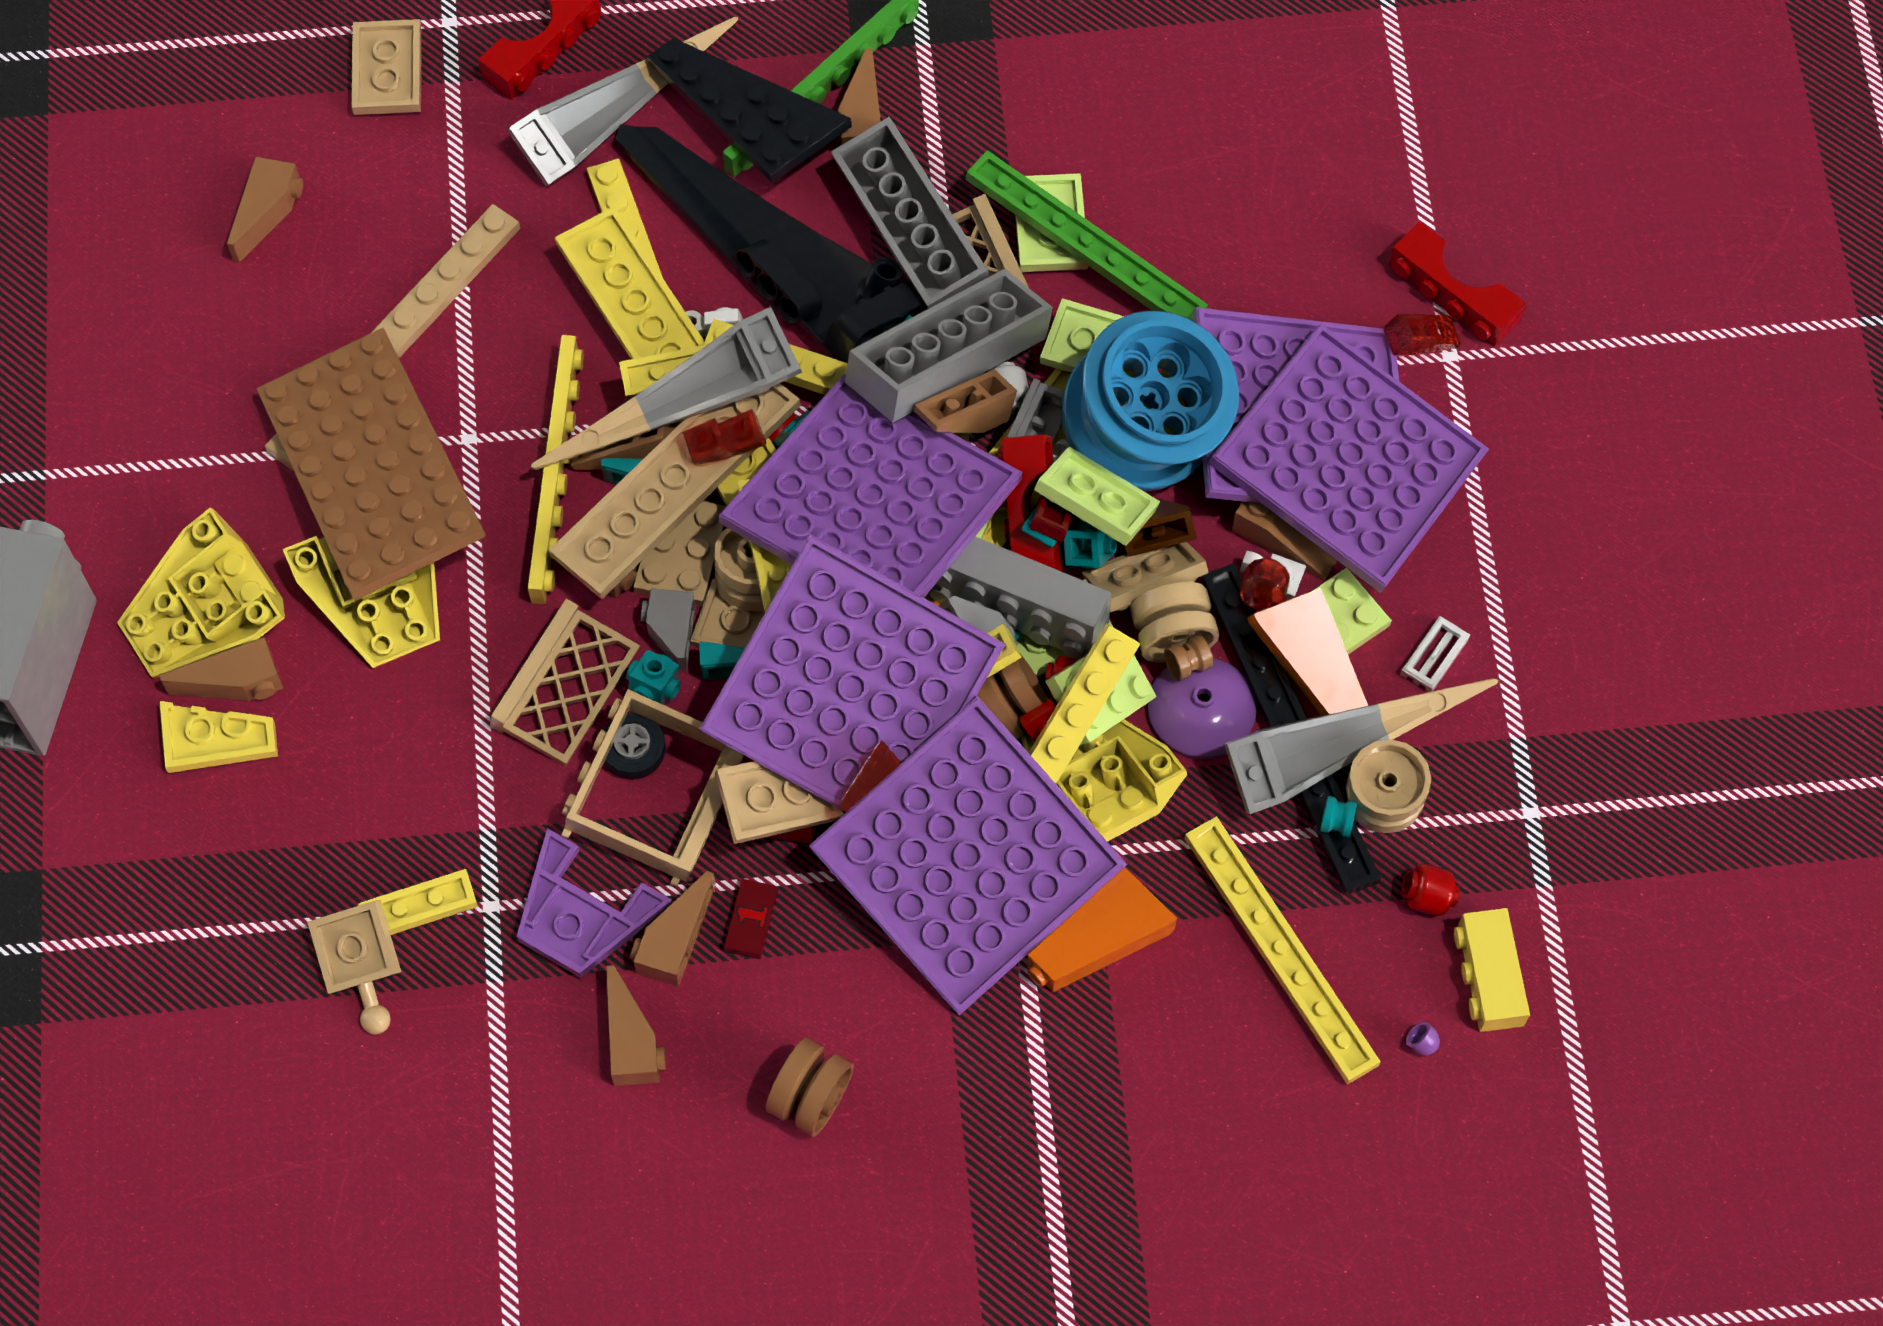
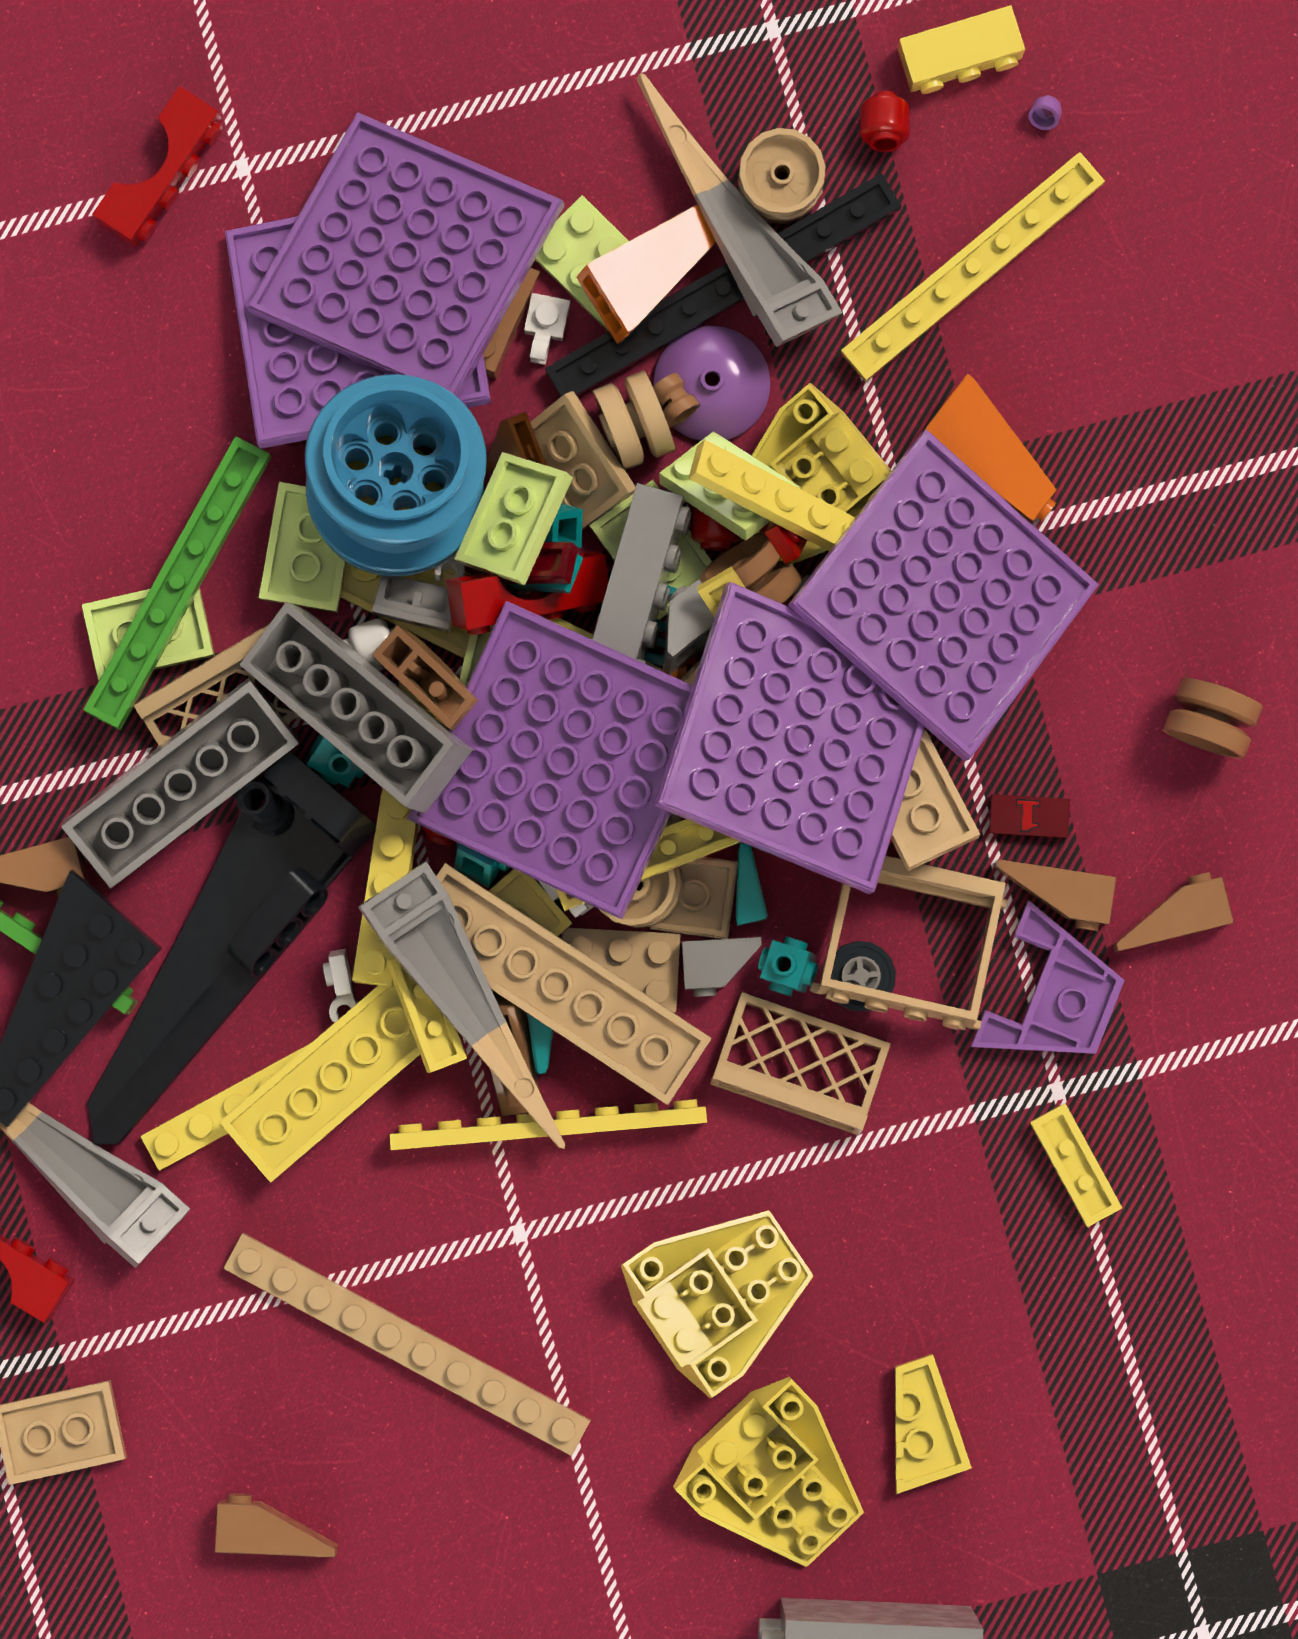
camera: 95 degrees left, 20 degrees up
(234, 675) = (851, 1418): medium nougat slope -> none
(355, 951) = (1143, 1215): tan plate -> none
(370, 464) = (591, 1326): medium nougat plate -> none
(723, 440) = (509, 936): clear red slope -> none
(875, 769) = (890, 700): clear red slope -> none
(1264, 584) = (574, 329): clear red head -> none
(1338, 816) = (829, 221): teal wheel -> none
(1418, 334) = (238, 218): clear red slope -> none
(1420, 677) = (640, 160): white tile -> none

